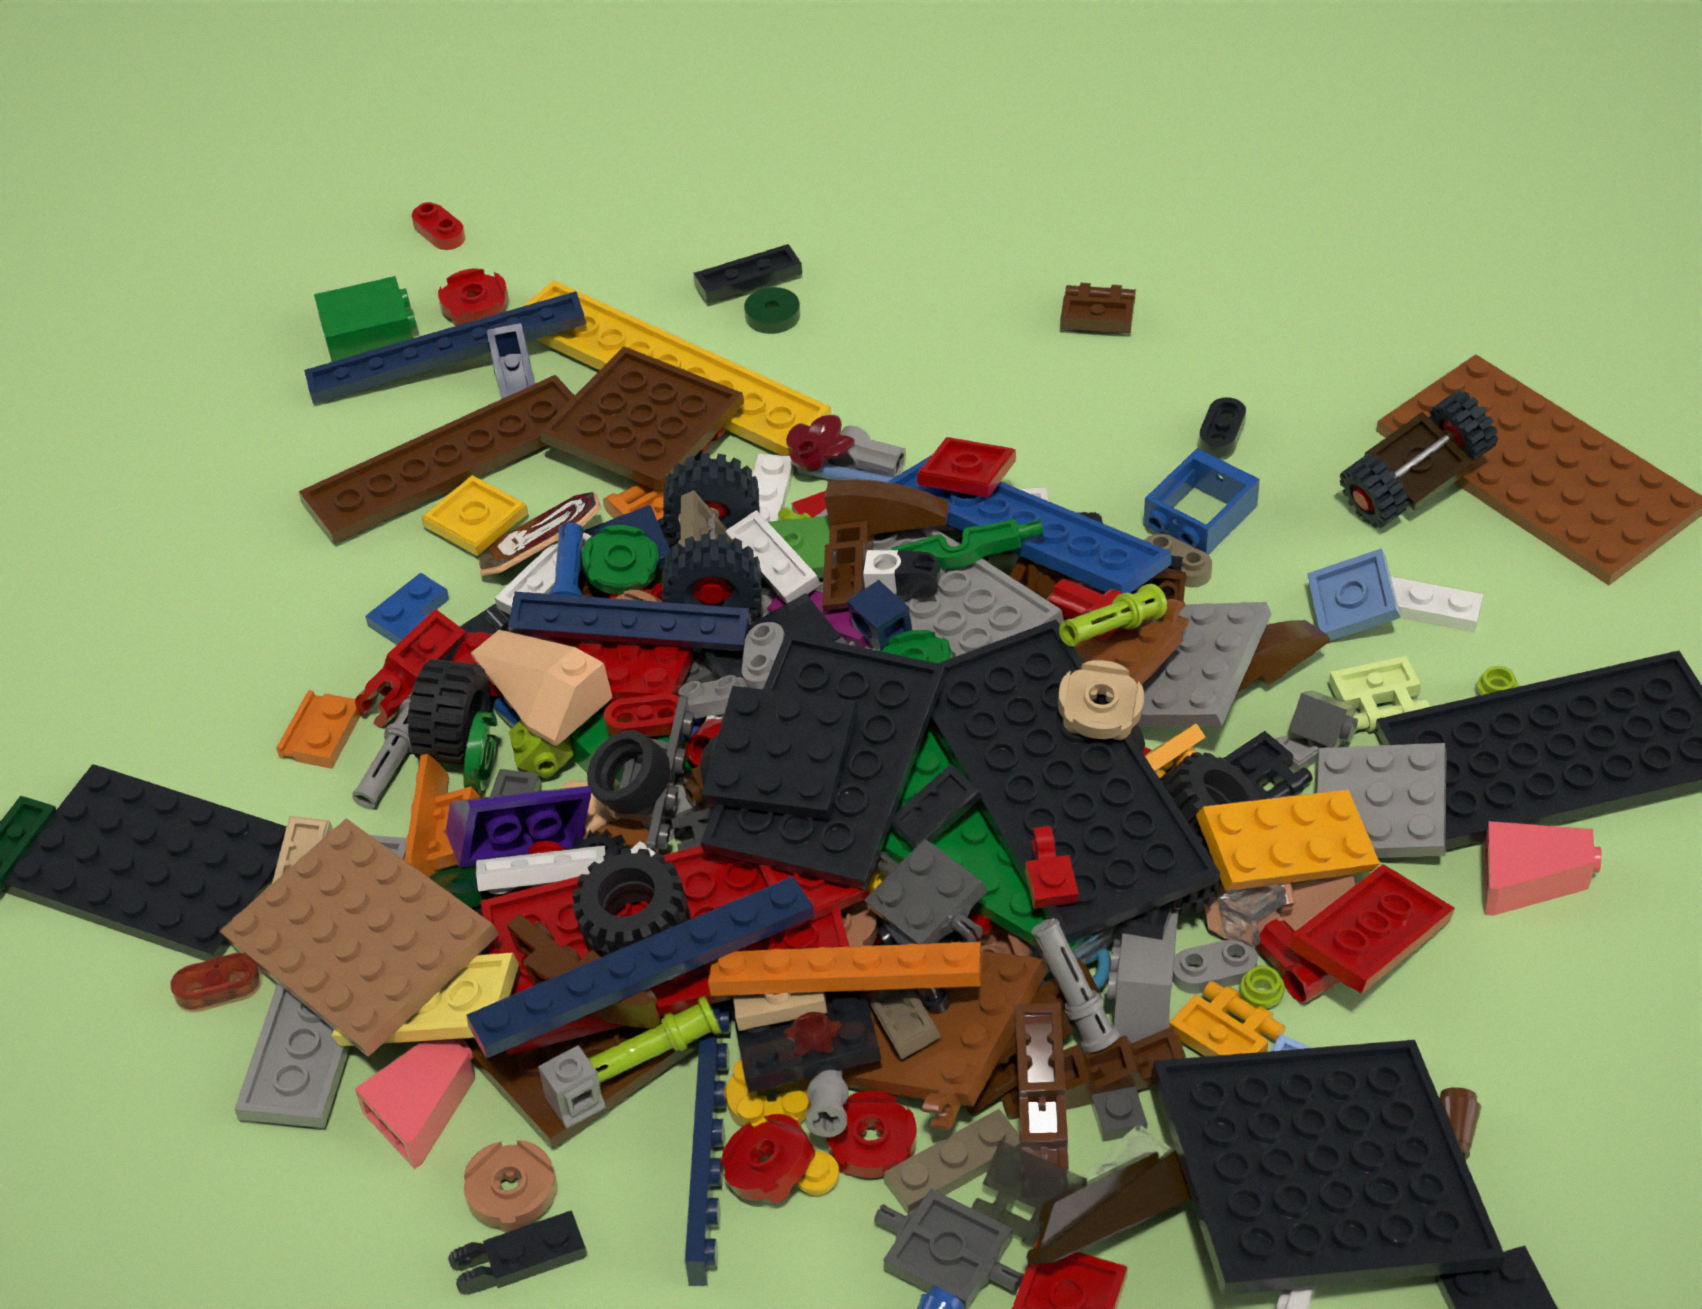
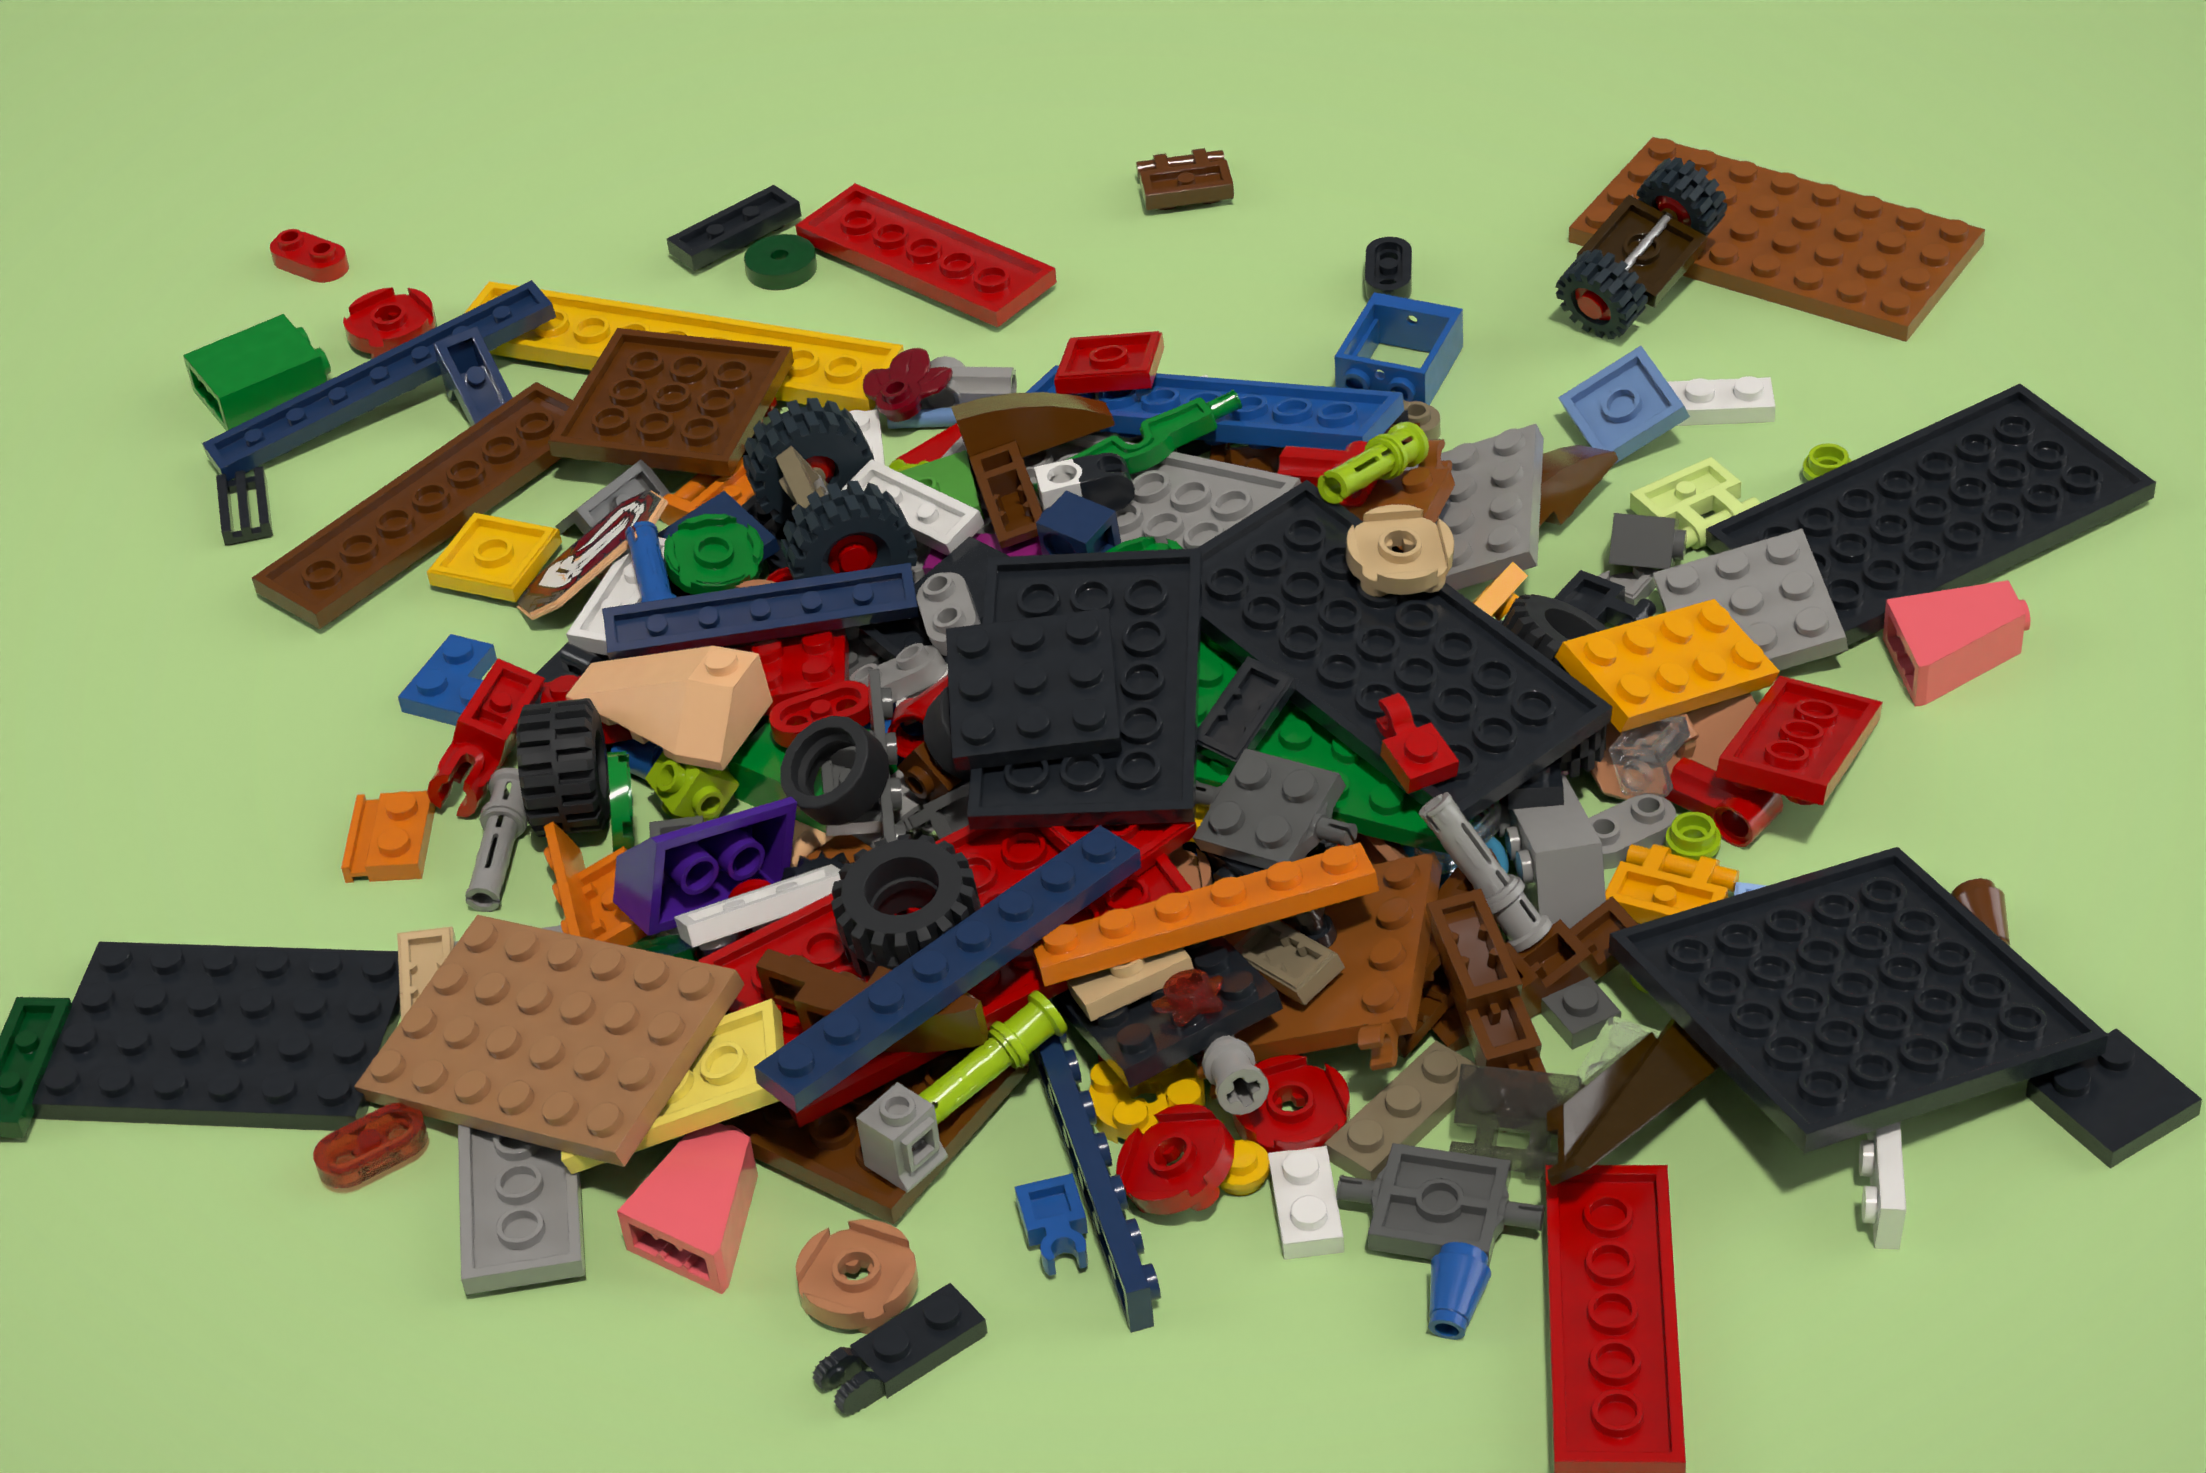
camera: 15 degrees left, 5 degrees down
(321, 408) = (241, 486): none -> black tile
(593, 479) = (628, 484): none -> dark grey panel
(662, 1178) = (1054, 1219): none -> blue plate
(852, 1215) = (1306, 1203): none -> white plate
(880, 330) = (927, 254): none -> red plate

